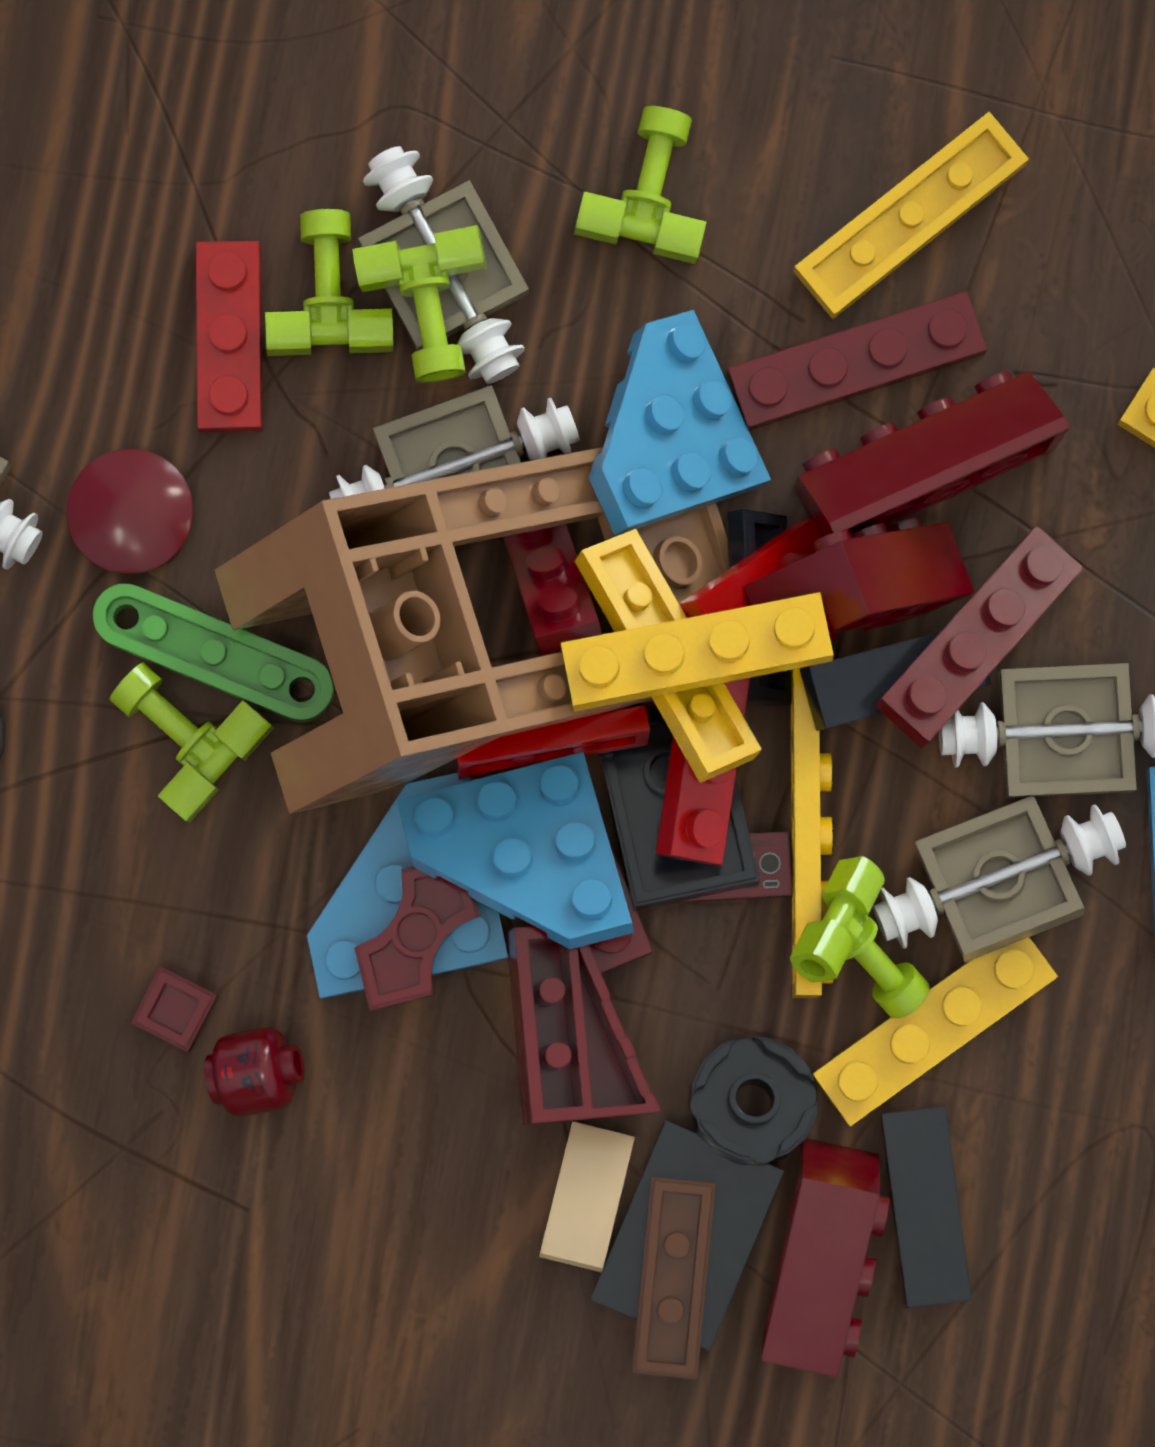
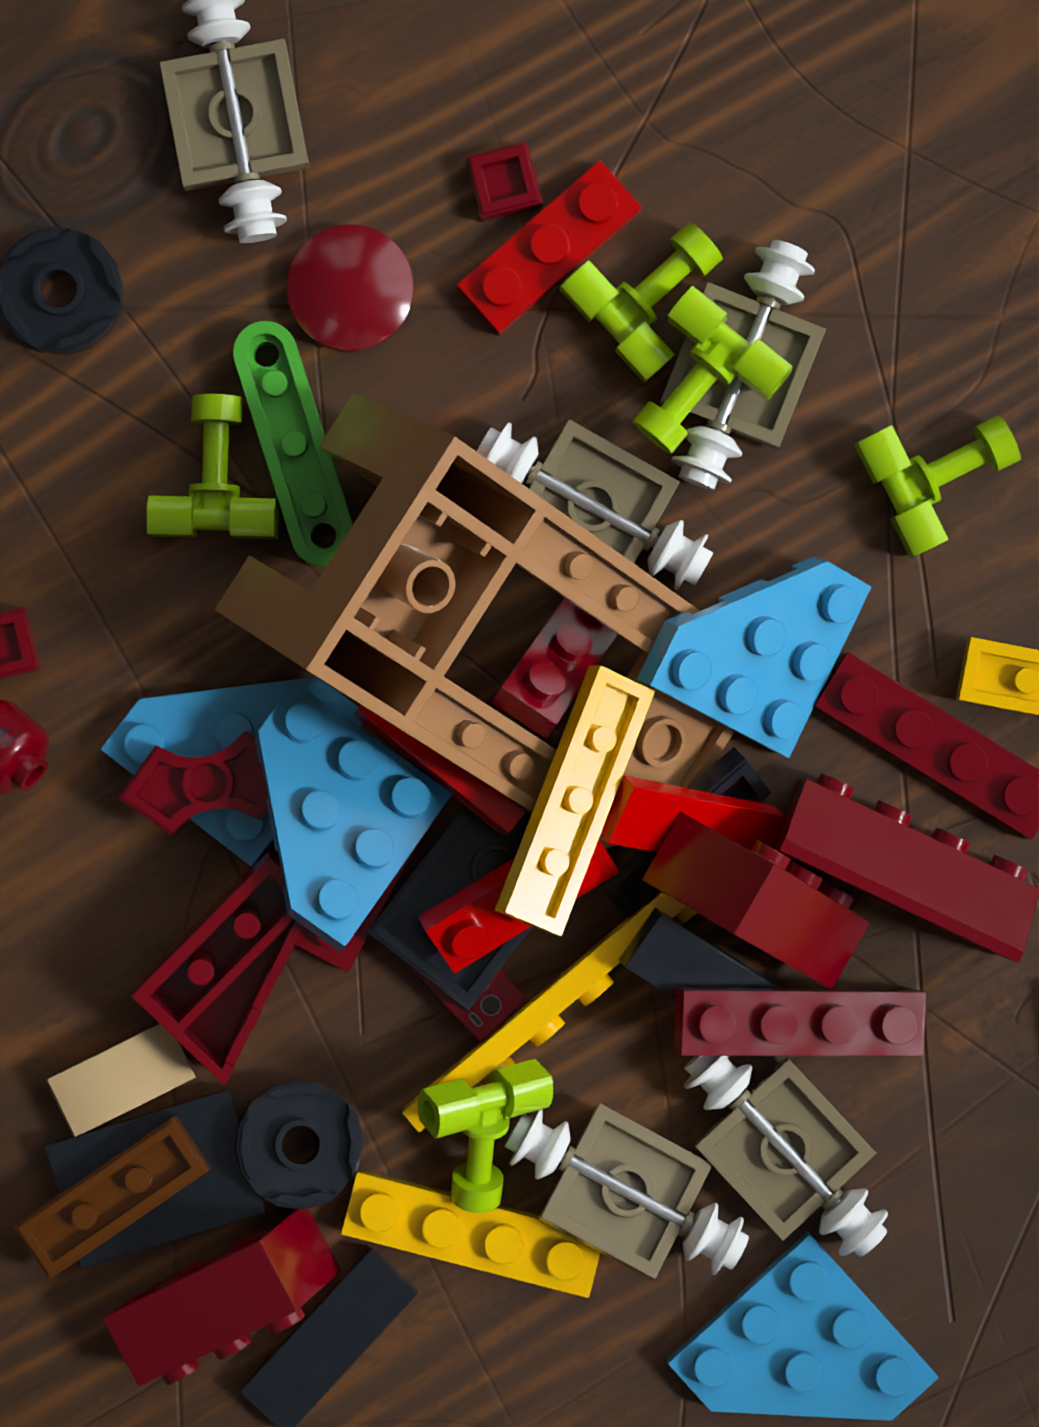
camera: 50 degrees right, 5 degrees up
(149, 328) = (504, 181): none -> dark red tile
(697, 651) = (593, 824): yellow plate -> none

